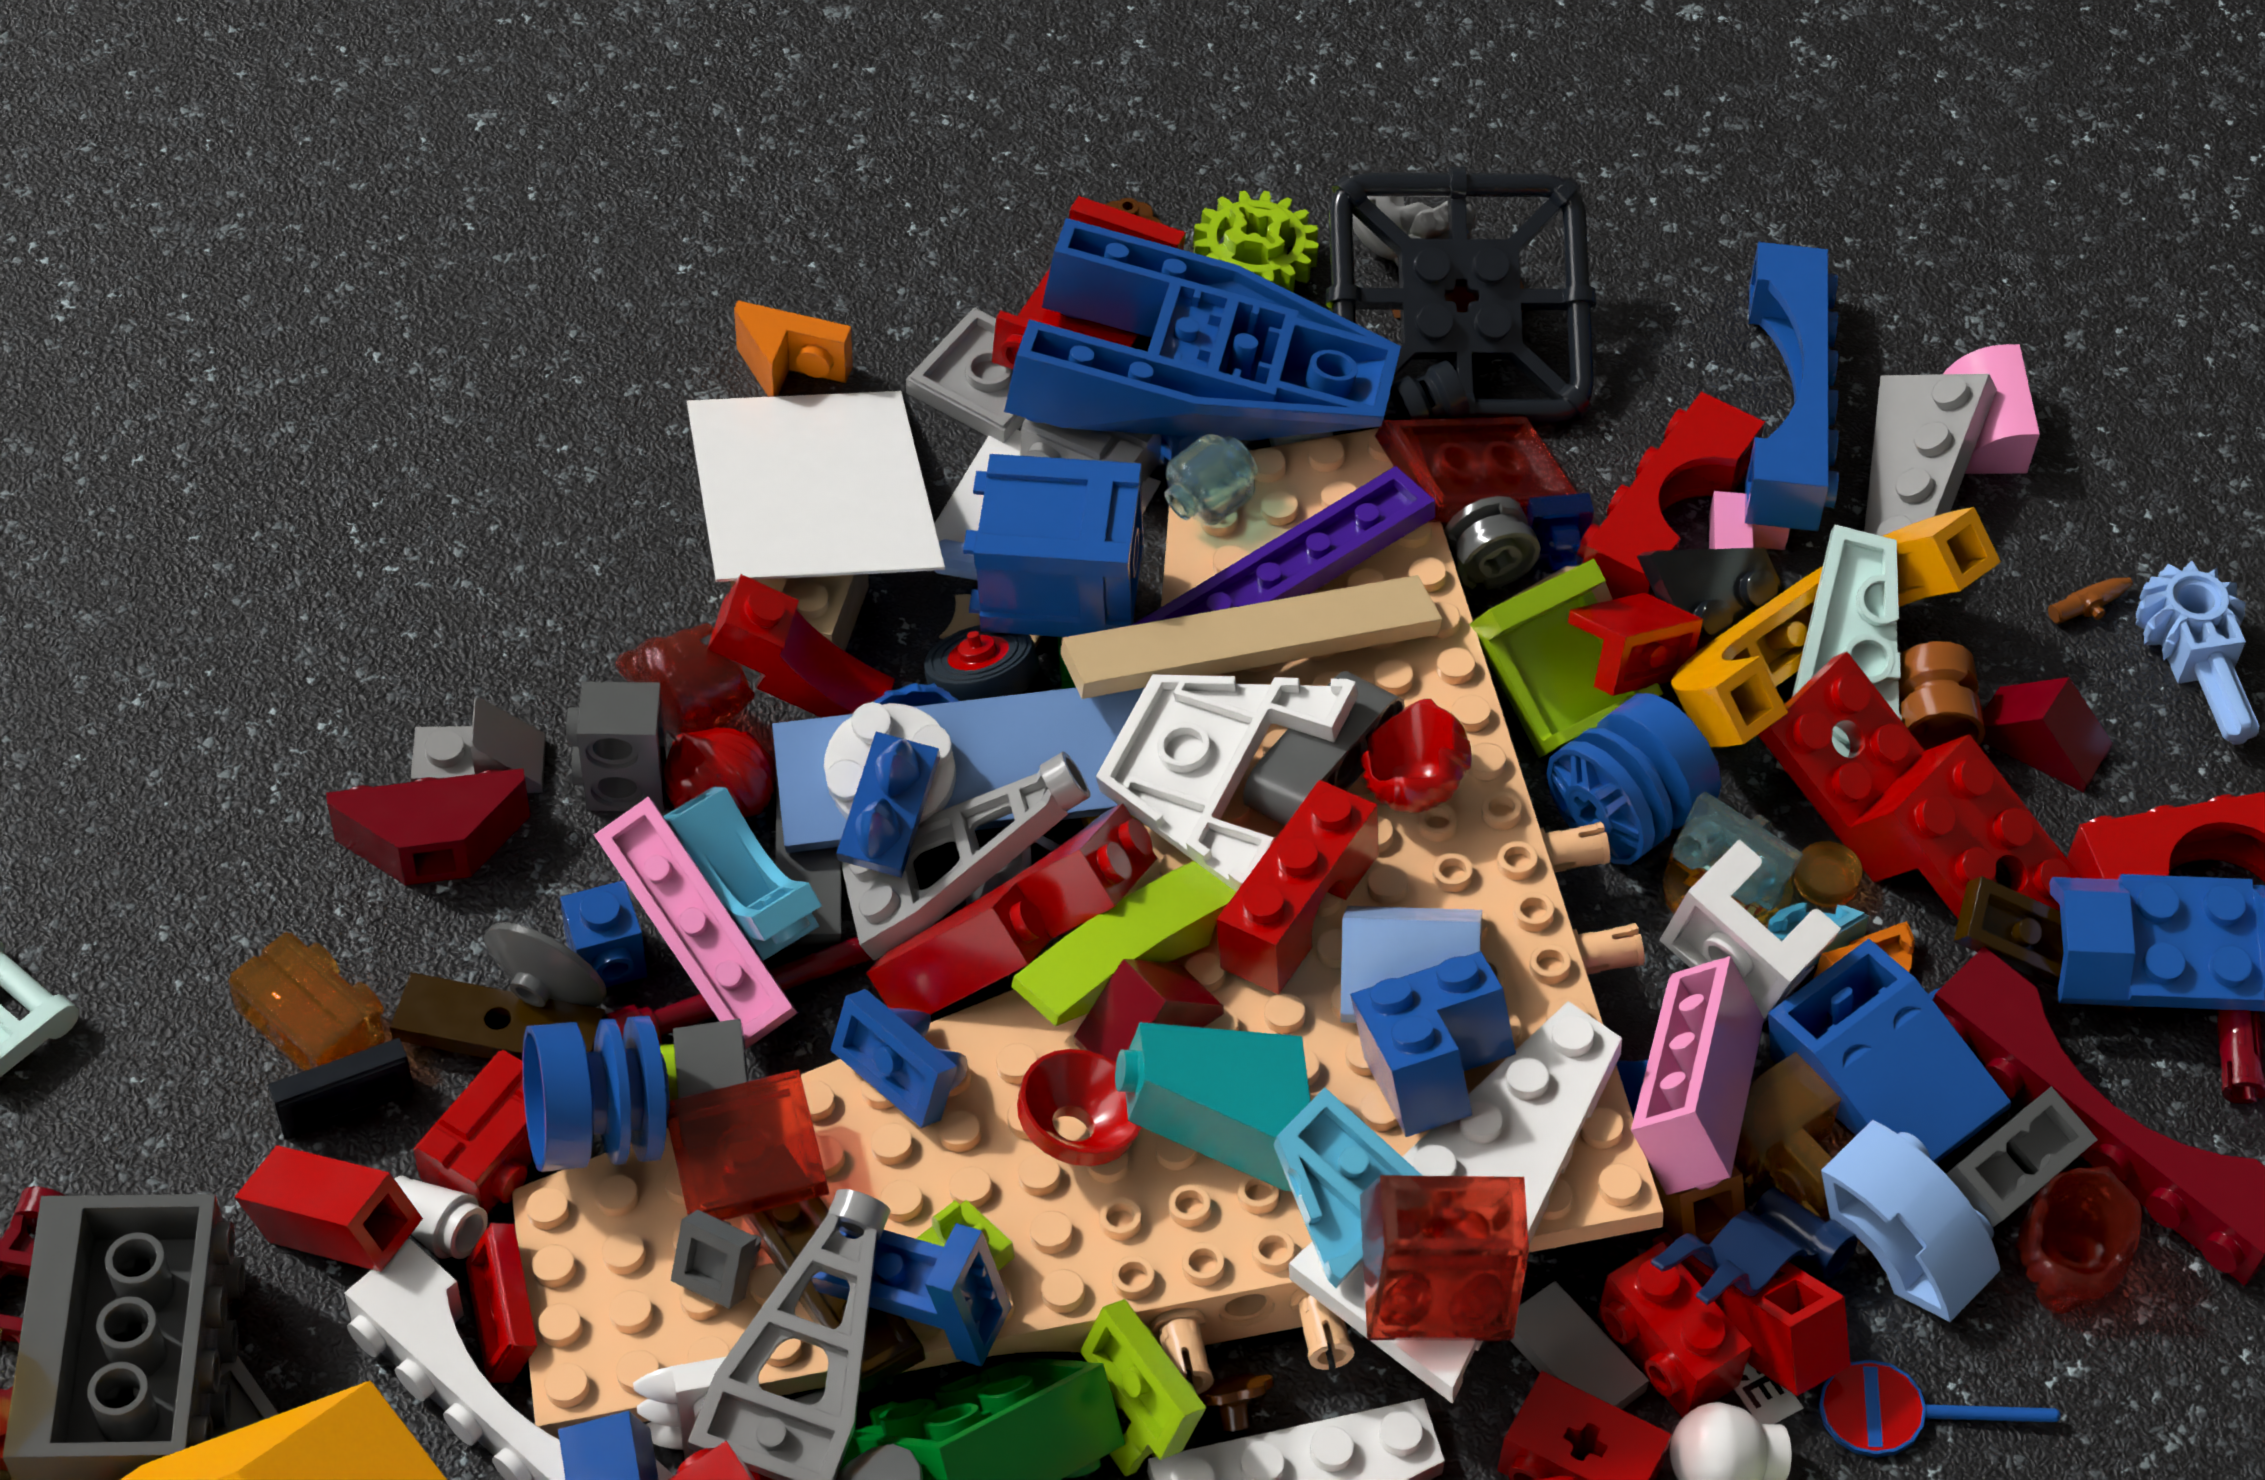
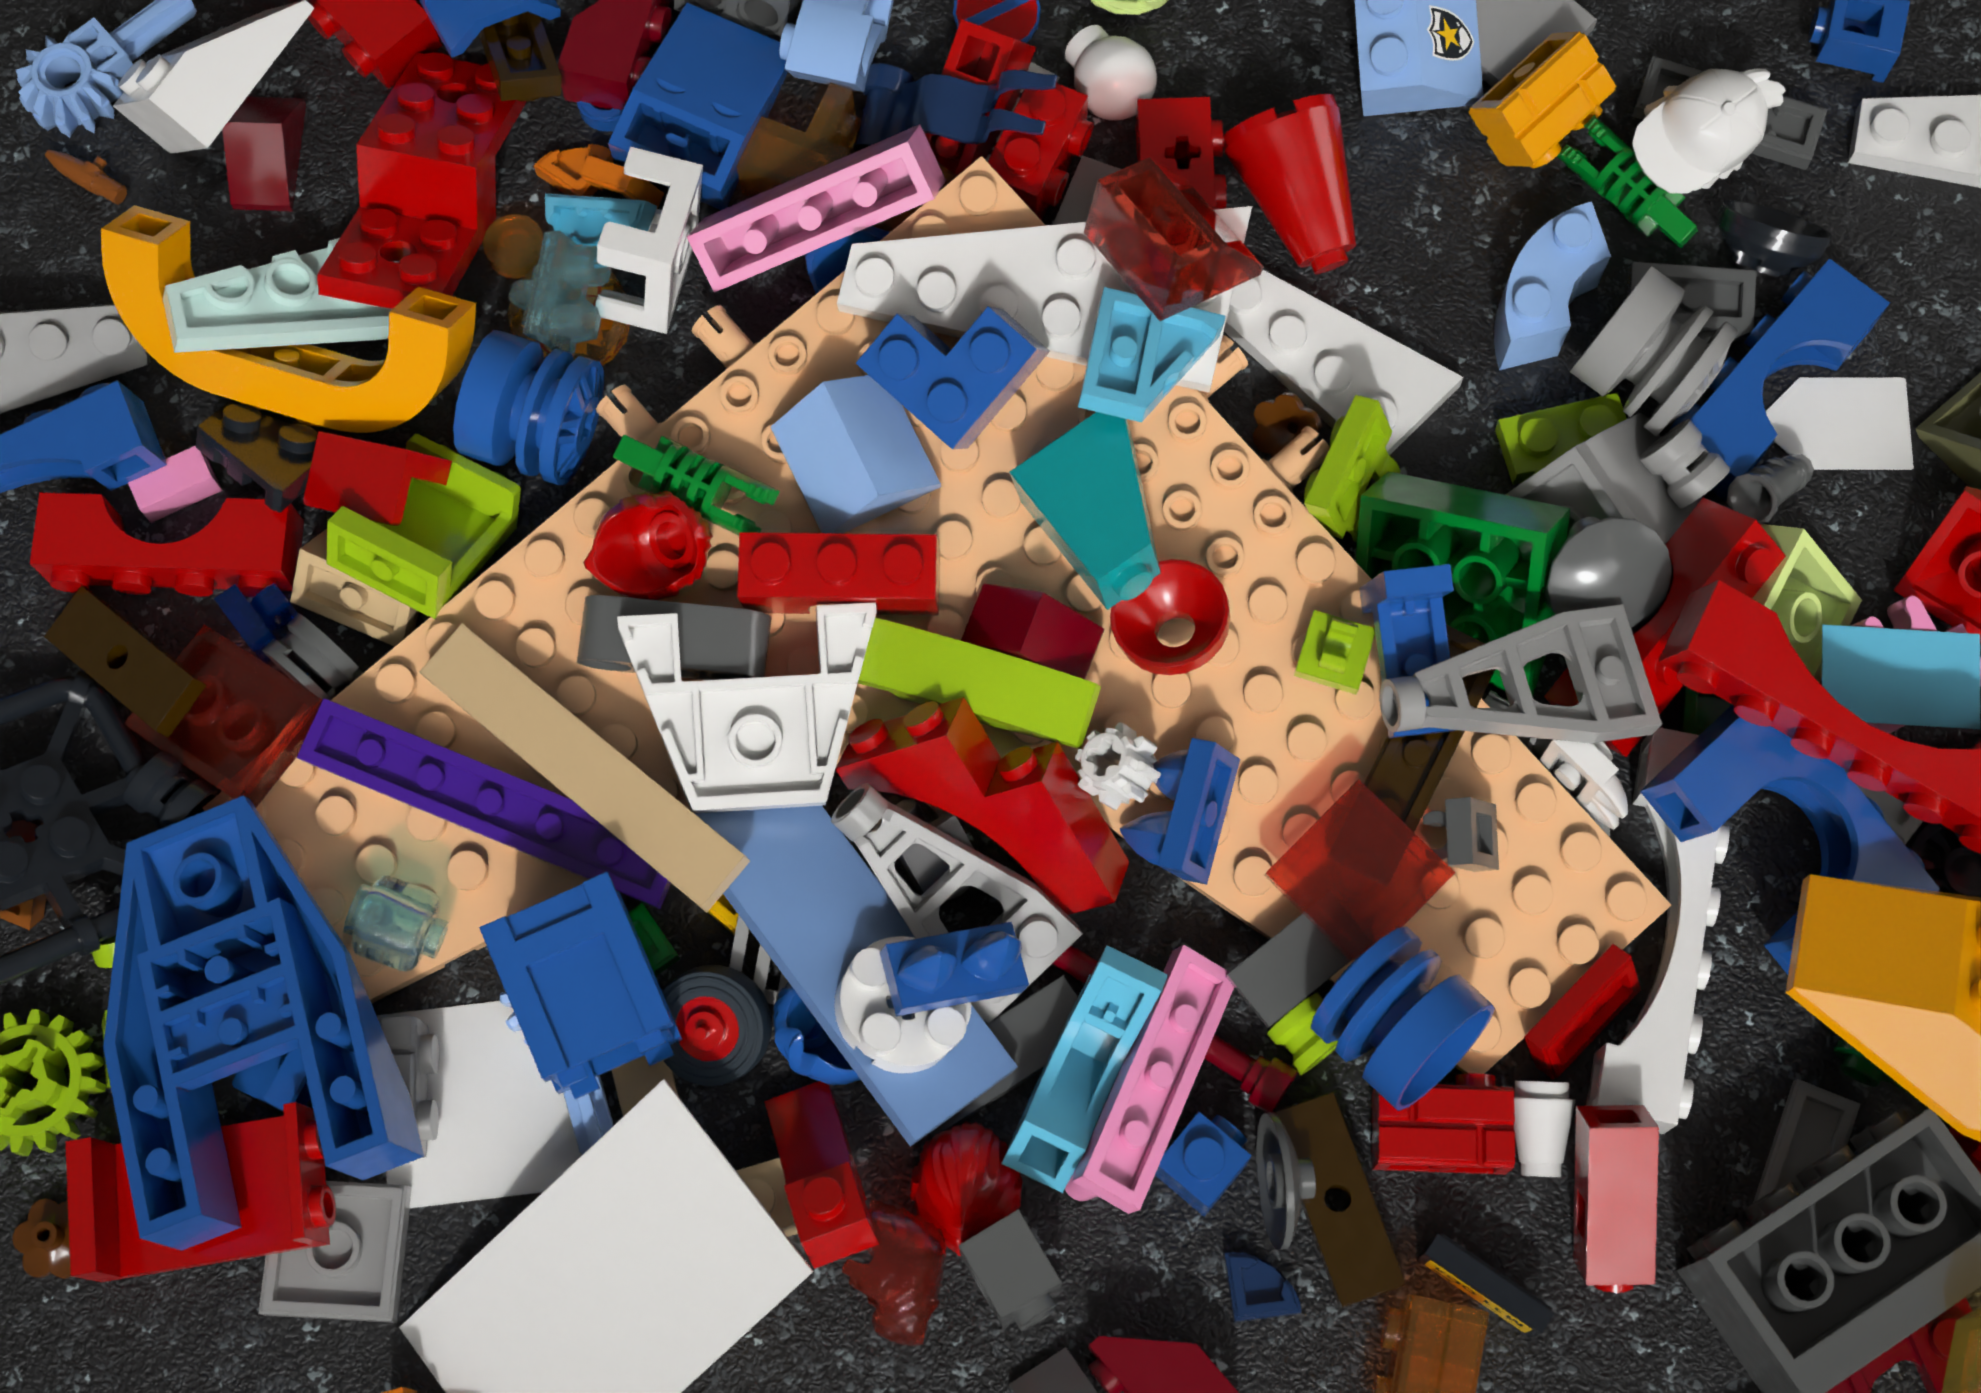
camera: 115 degrees left, 20 degrees up
(463, 941) = (1258, 1289): none -> dark blue tile
(977, 1010) = (1117, 766): none -> white gear
(1459, 823) = (693, 480): none -> green hinge
(1573, 423) = (125, 661): none -> dark brown tile
(1940, 694) = (292, 223): dark orange wheel -> none
(2132, 688) = (197, 88): none -> white slope

